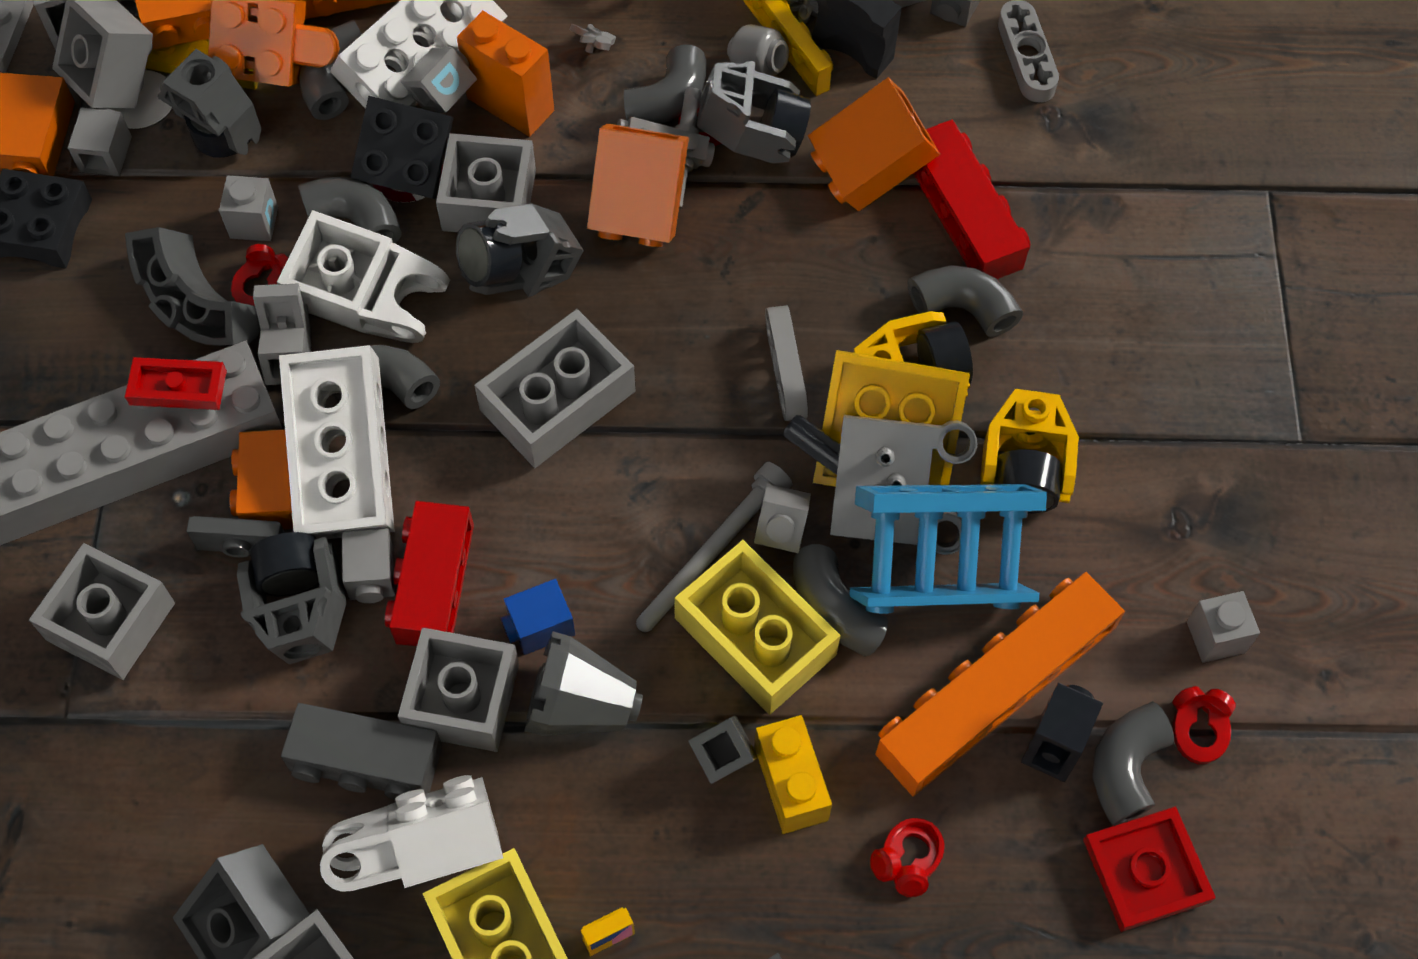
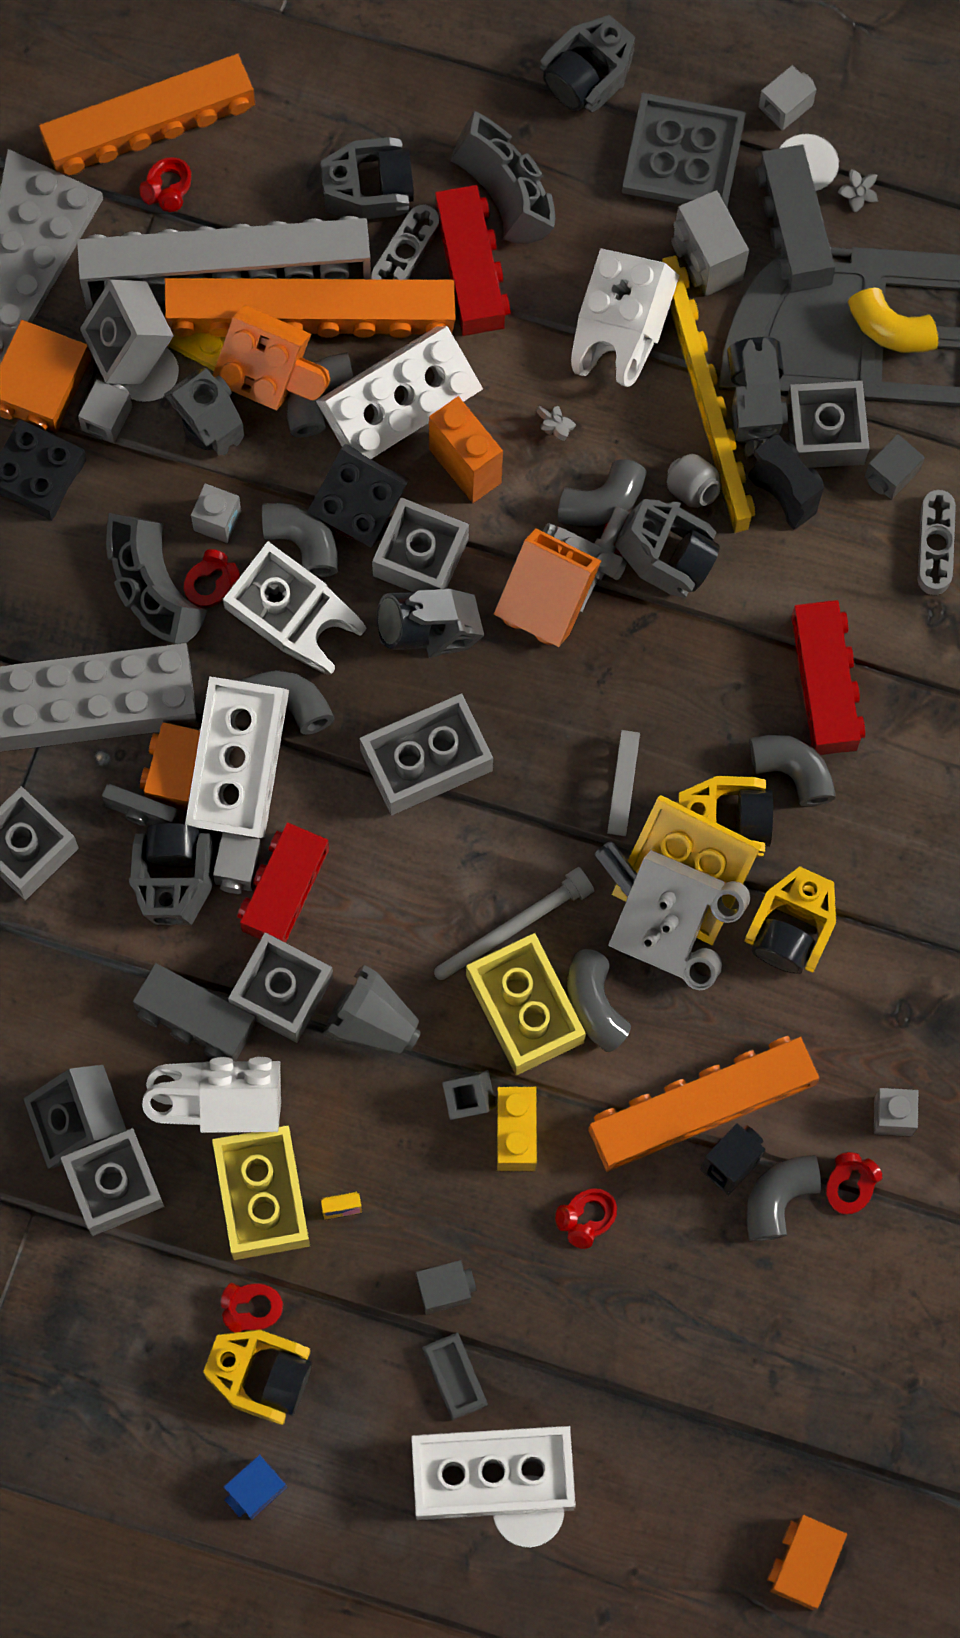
camera: 15 degrees right, 10 degrees up
(176, 383) = (122, 672): red plate -> none
(283, 326) = (217, 641): light grey brick -> none
(439, 79) = (406, 444): light grey brick -> none
(535, 615) = (357, 945): blue brick -> none
(782, 518) = (574, 920): light grey brick -> none
(872, 145) = (760, 606): orange brick -> none
(928, 504) = (686, 952): dark azure fence -> none
(1148, 869) = (765, 1281): red plate -> none

